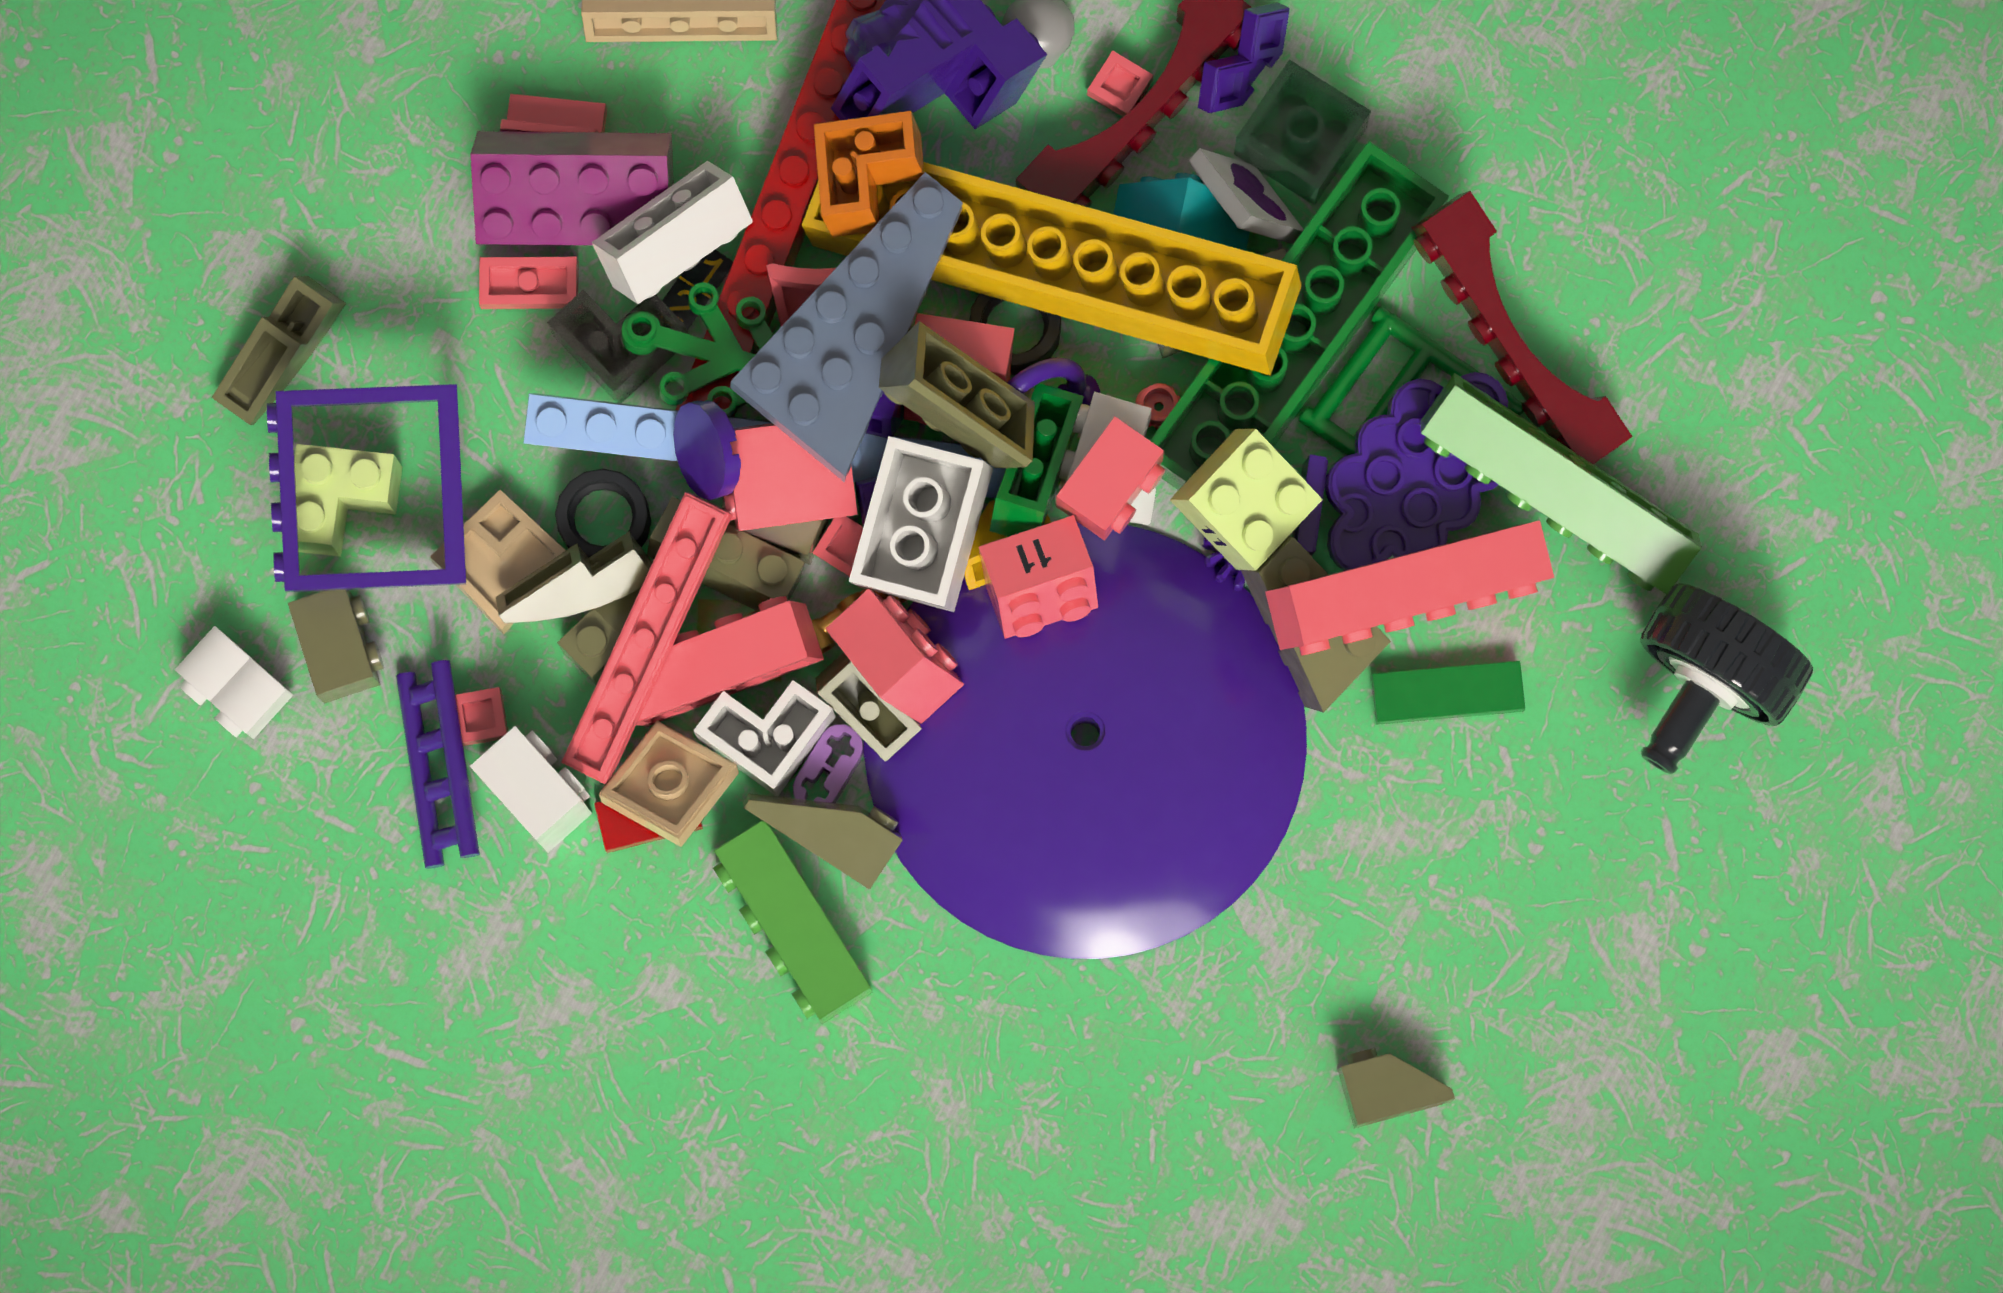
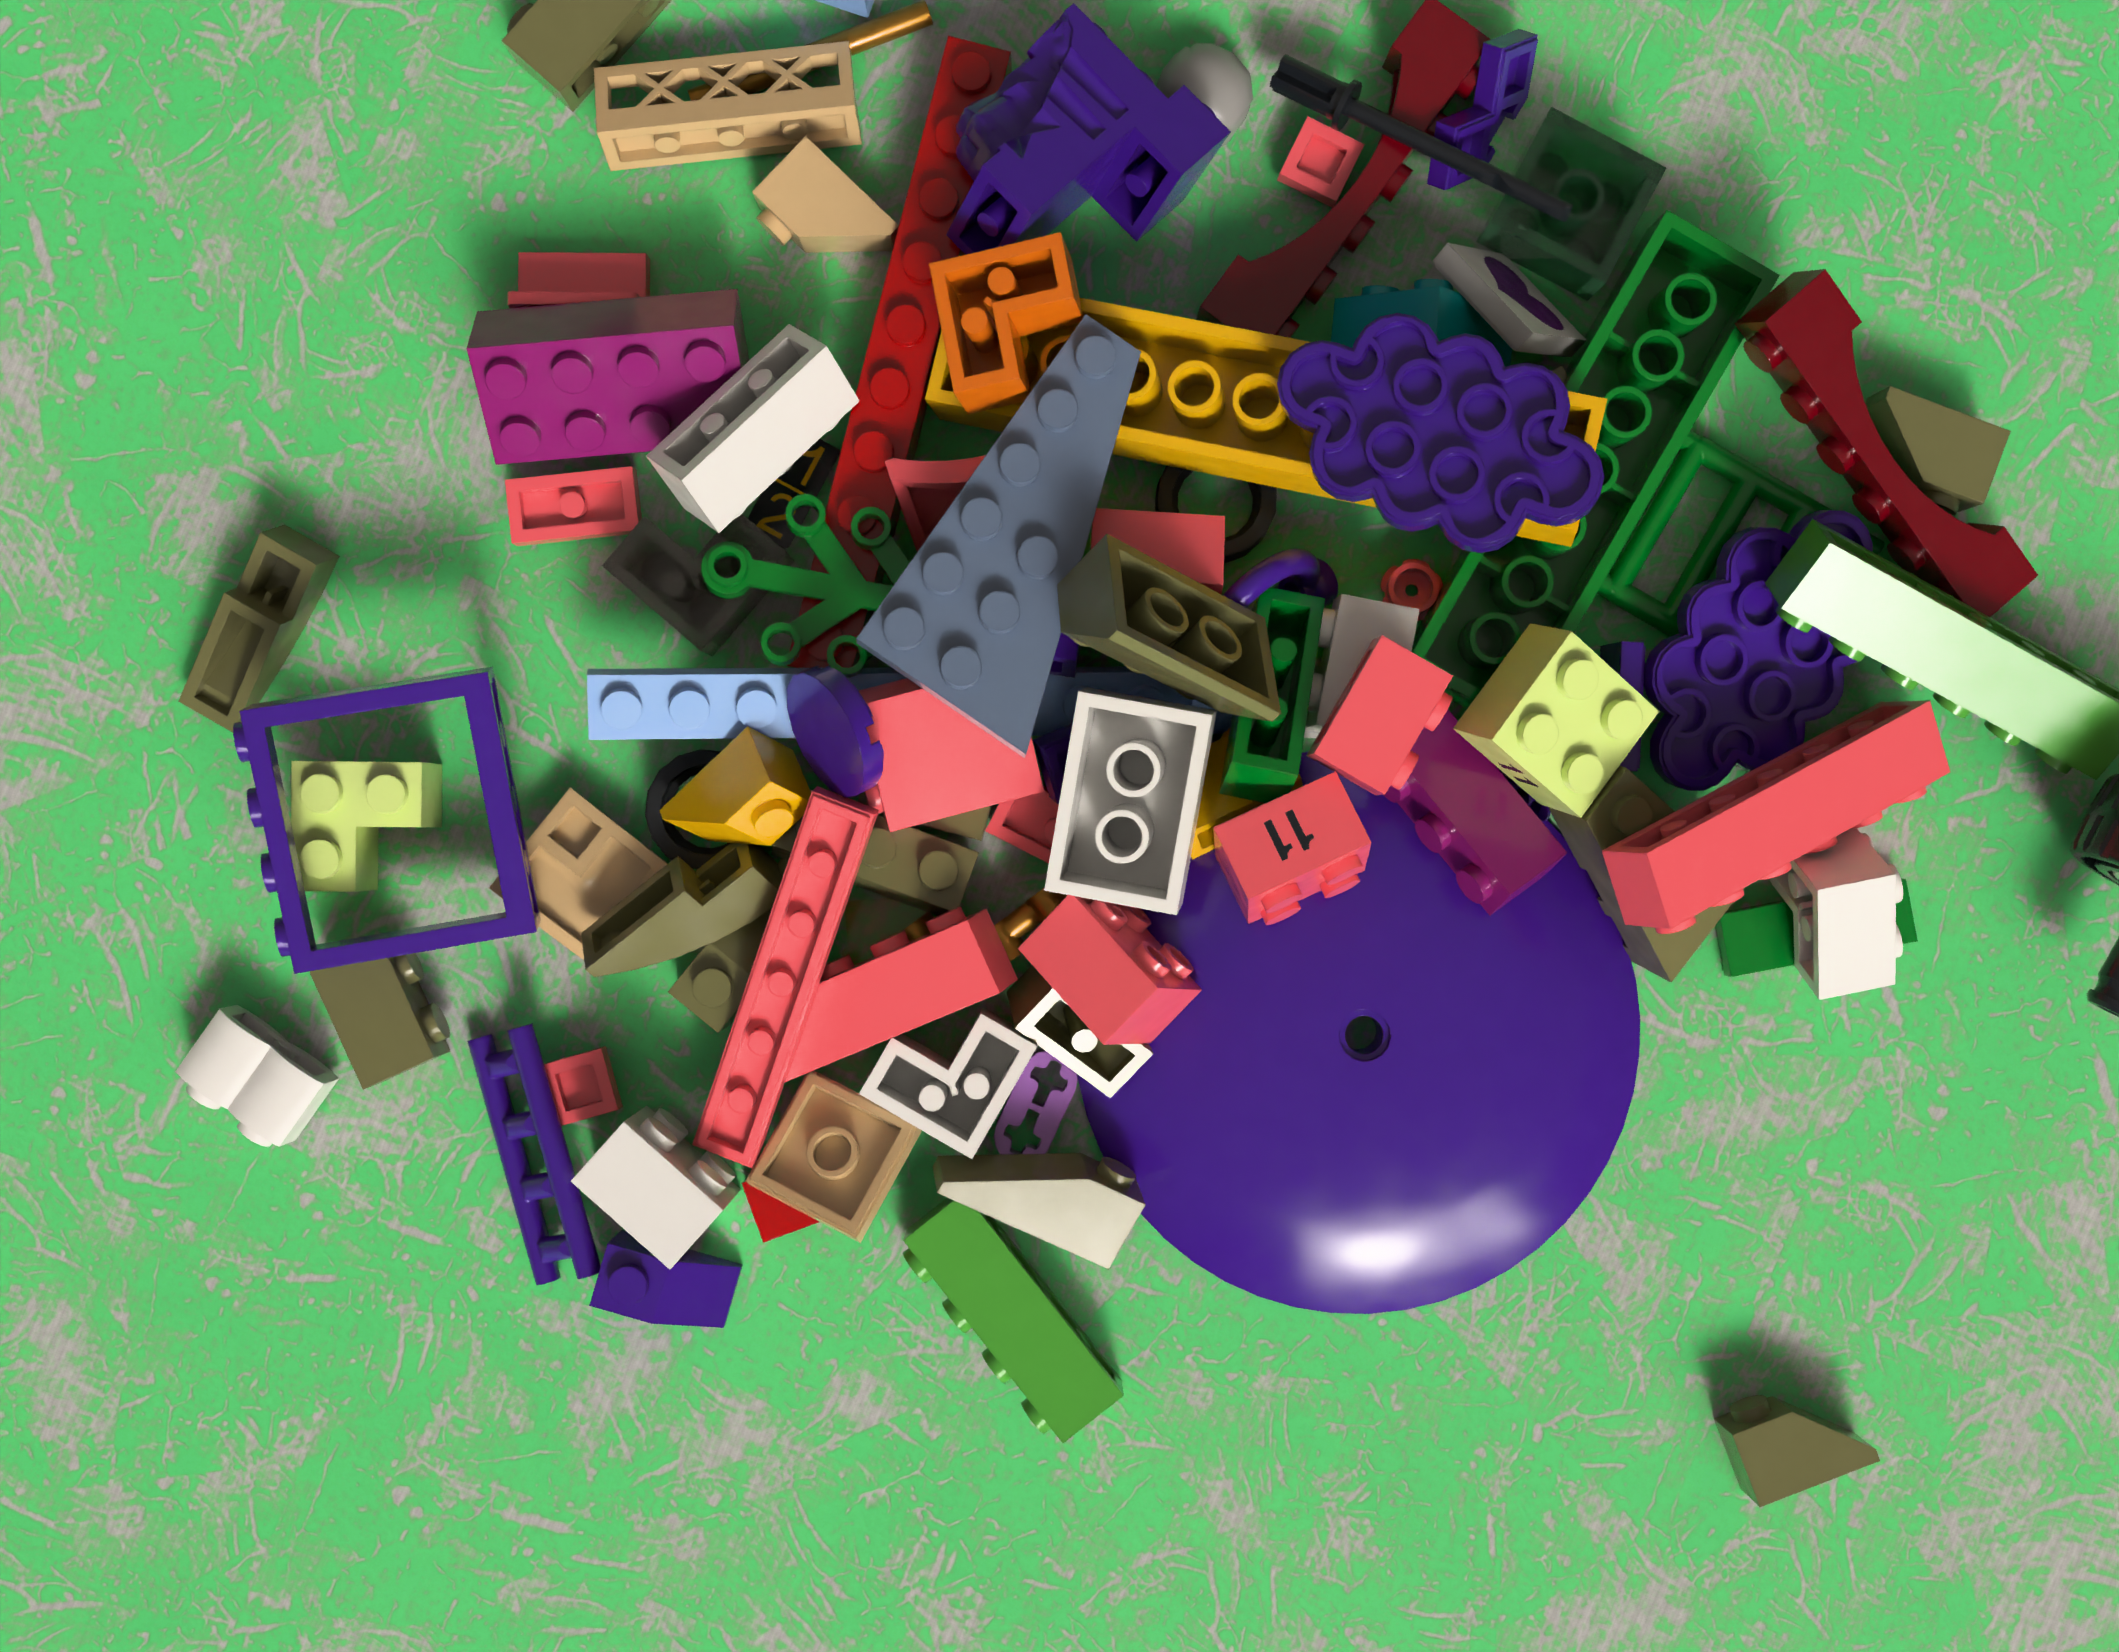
camera: 10 degrees left, 10 degrees up
(527, 872) = (643, 1288): none -> dark purple slope
(630, 499) = (743, 794): none -> yellow slope
(740, 82) = (820, 206): none -> tan slope
(1137, 42) = (1340, 102): none -> black piece
(1170, 277) = (1440, 432): none -> dark purple plate
(1180, 571) = (1474, 819): none -> magenta brick
(1458, 672) = (1844, 916): none -> white brick
(1567, 339) = (1938, 447): none -> olive slope

